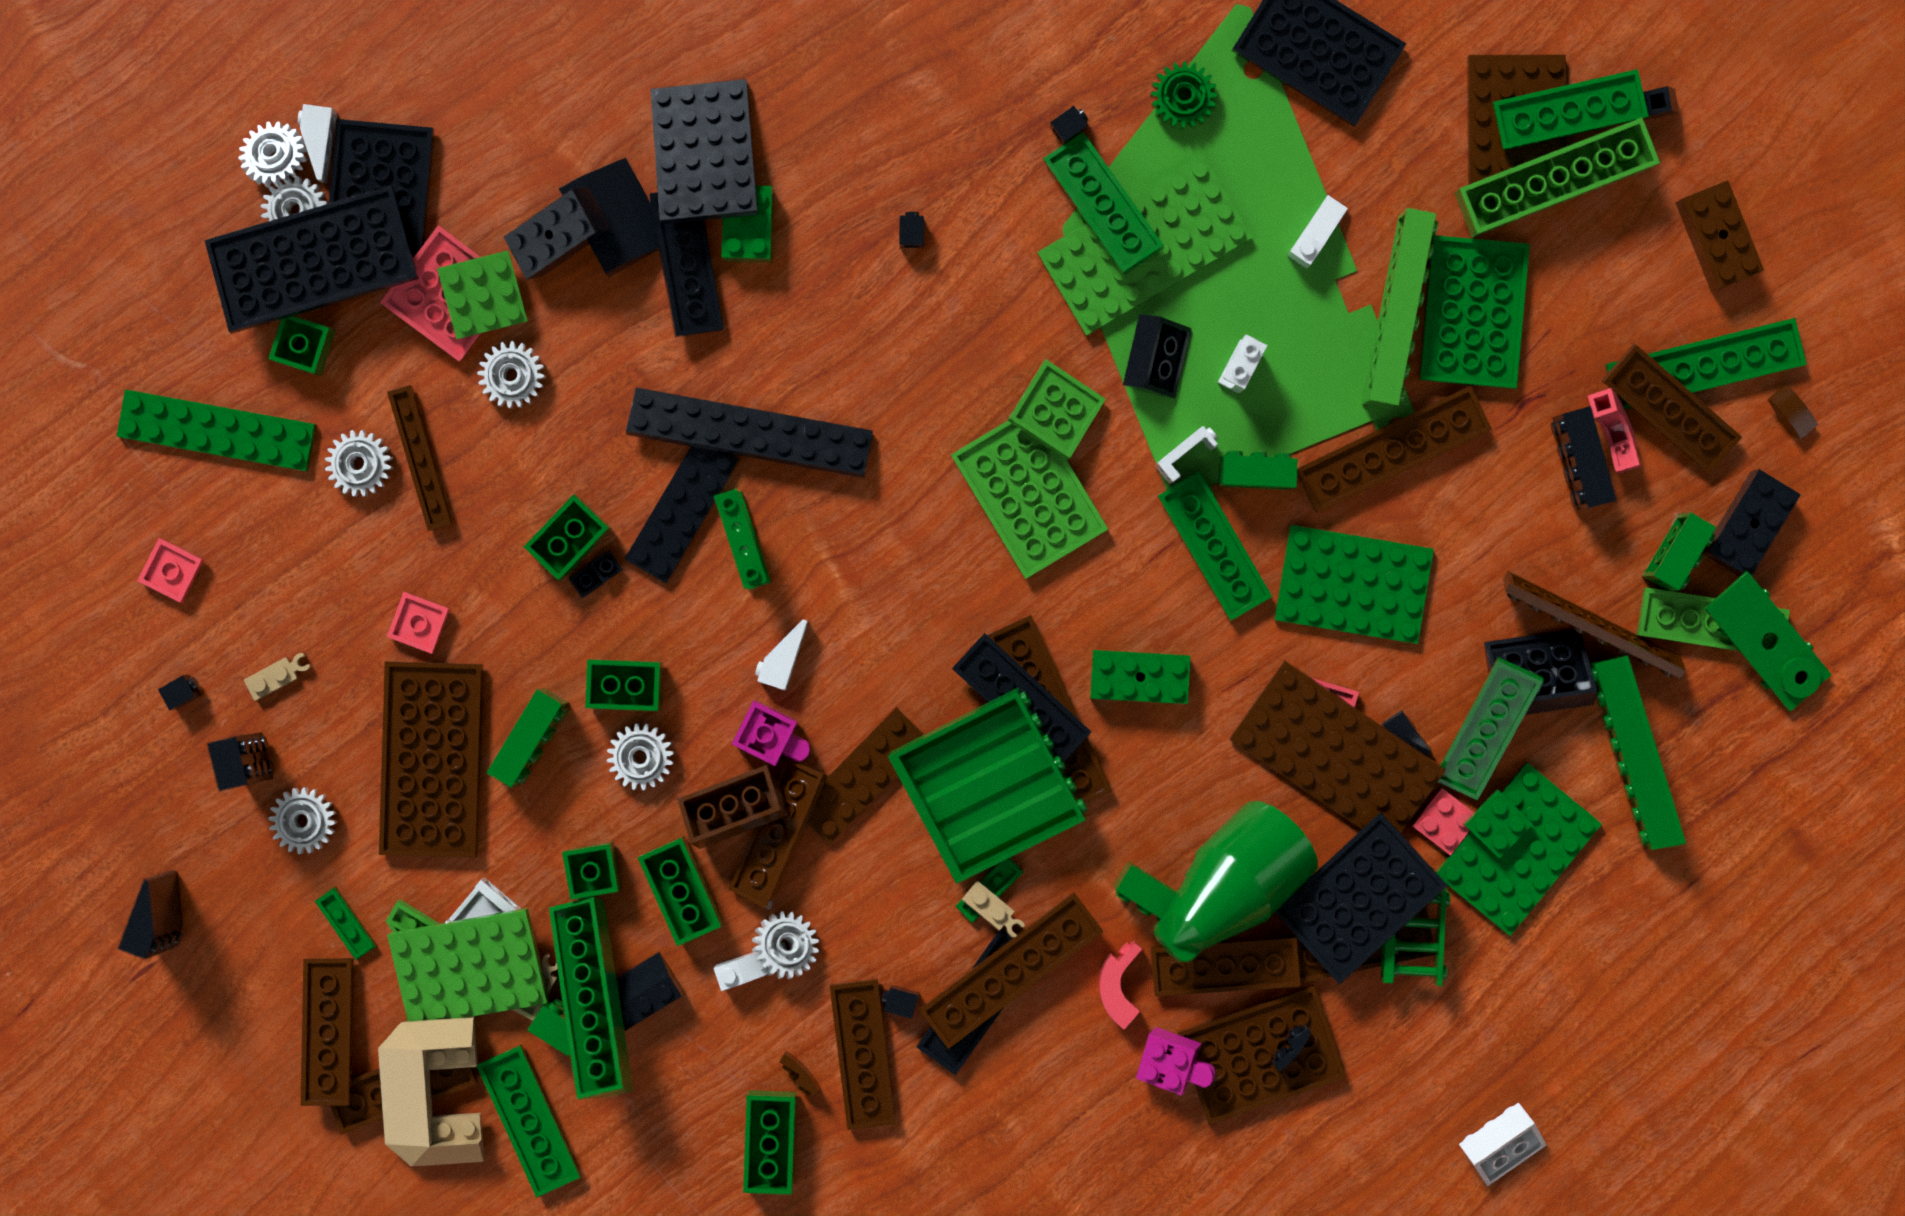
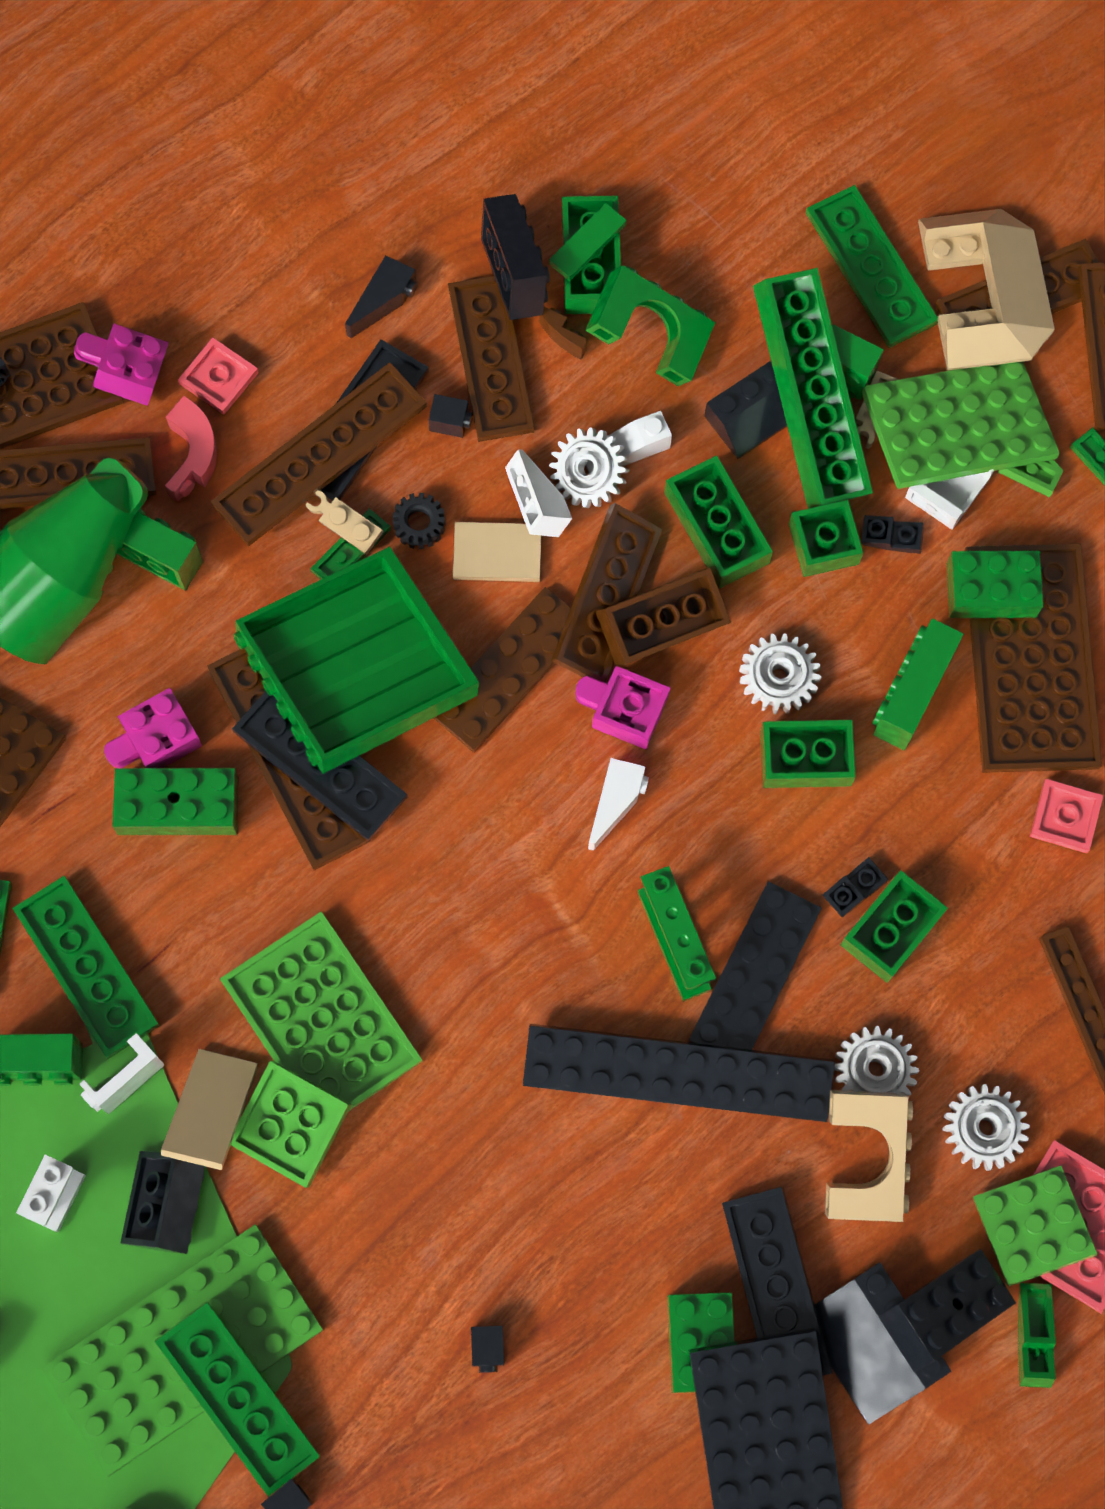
camera: 170 degrees right, 15 degrees down
(455, 819) = (994, 584): none -> green brick
(490, 214) = (1036, 1335): none -> green slope
(535, 874) = (892, 535): none -> black slope
(578, 422) = (876, 1049): none -> white gear
(598, 325) = (884, 1196): none -> tan arch
(693, 1068) = (686, 327): none -> green arch
(772, 1148) = (587, 242): none -> green tile
(829, 920) = (537, 497): none -> white slope
(836, 1138) = (514, 256): none -> black brick
(867, 878) = (496, 552): none -> tan tile
(920, 919) = (424, 536): none -> black tyre
(950, 1118) = (383, 295): none -> black slope
(1095, 1050) = (218, 376): none -> coral plate
(1118, 423) = (209, 1109): none -> tan tile
(1157, 735) = (154, 732): none -> dark pink brick

